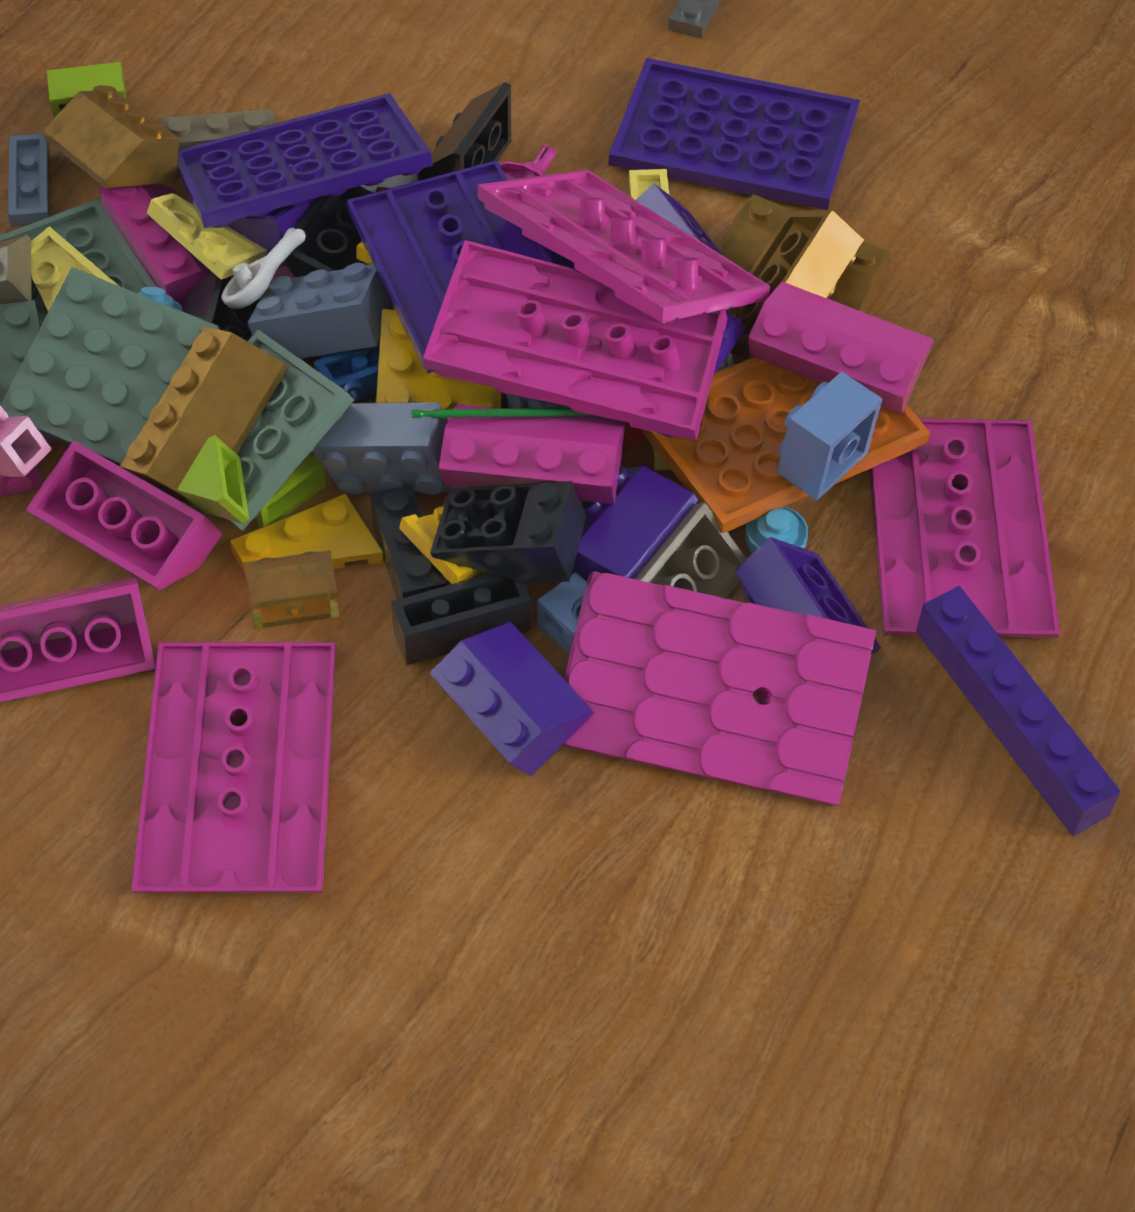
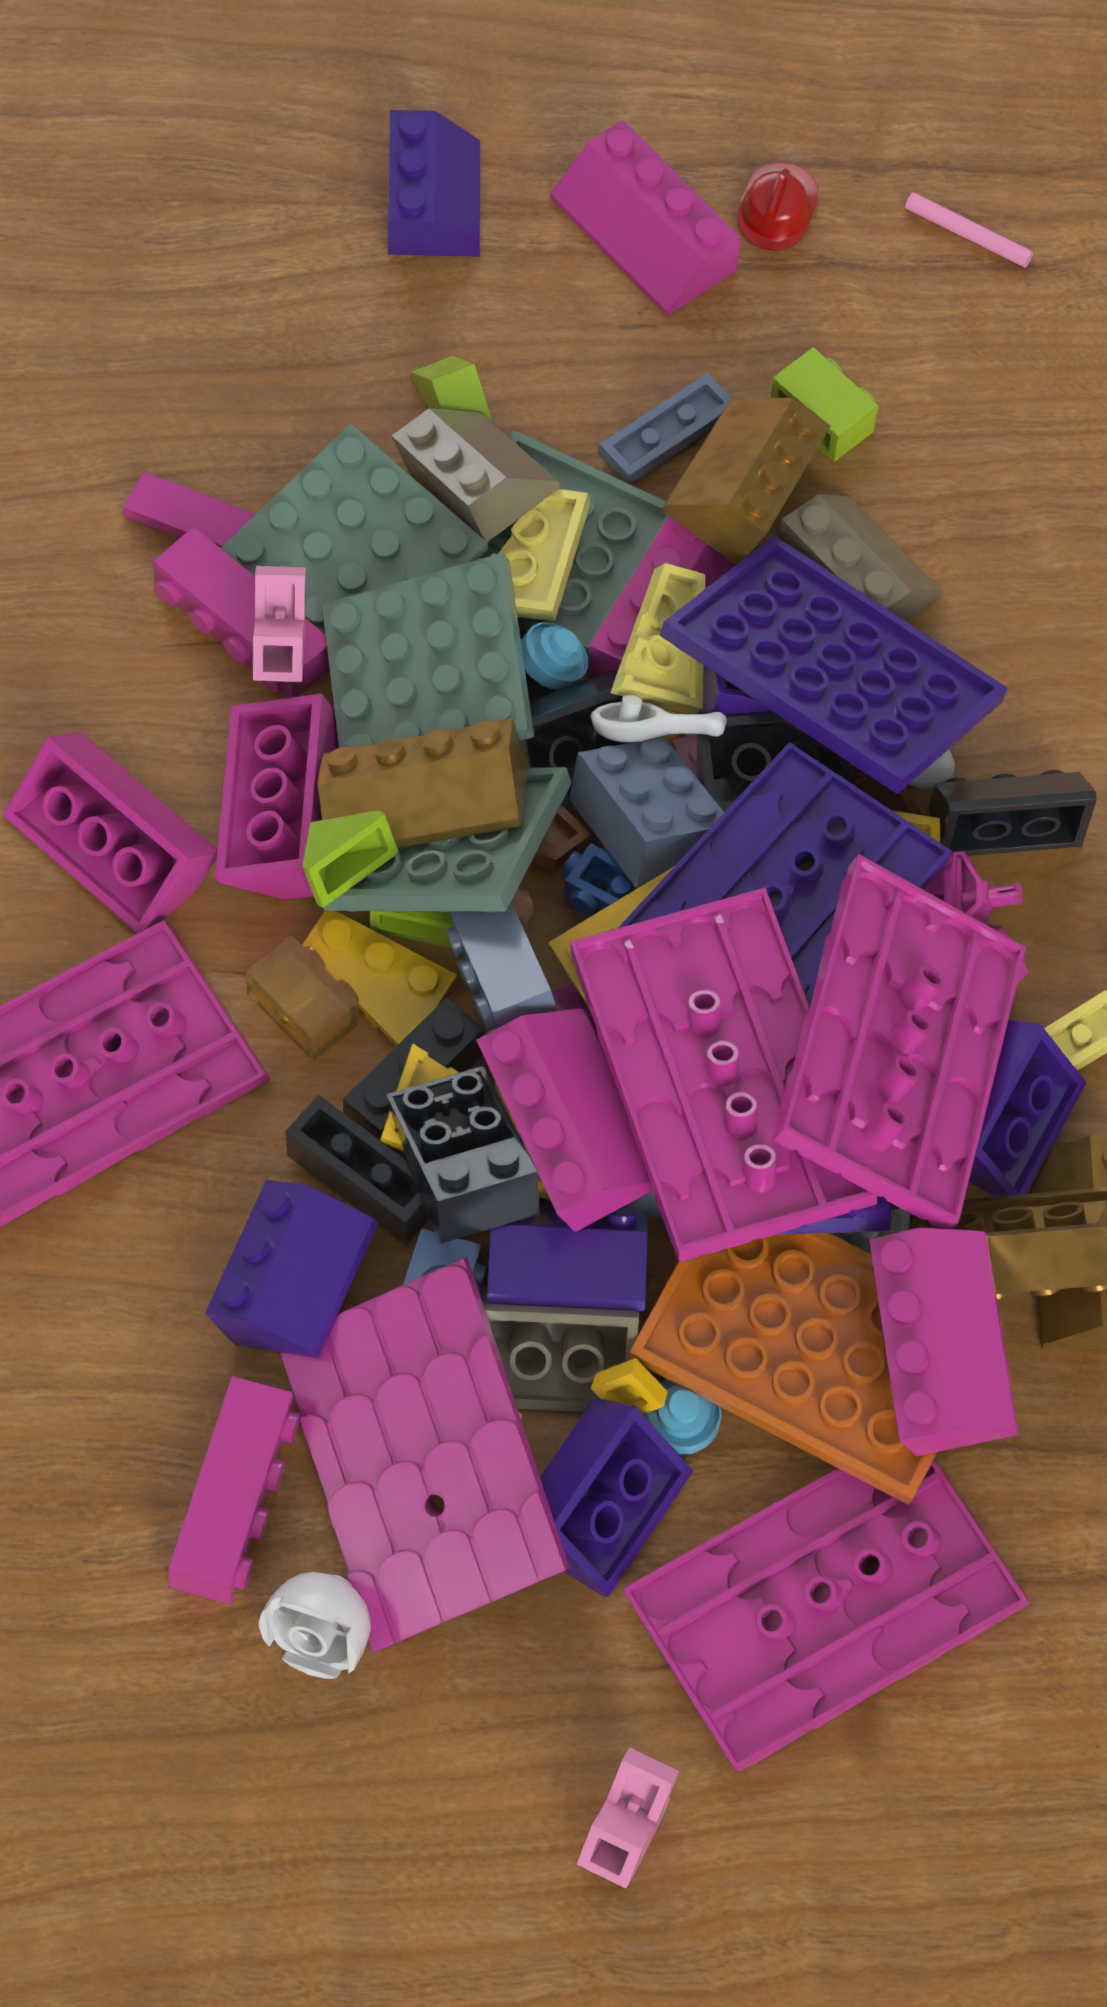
camera: 55 degrees right, 10 degrees up
(479, 413) = (570, 1042): green piece -> none
(657, 826) = (231, 1491): none -> dark pink brick
(744, 540) = (630, 1385): none -> yellow plate
(804, 819) = (317, 1623): none -> white cylinder
(828, 434) = (792, 1390): medium blue brick -> none
(1017, 711) = (587, 1767): dark purple brick -> none
(1084, 713) = (628, 1818): none -> bright pink brick

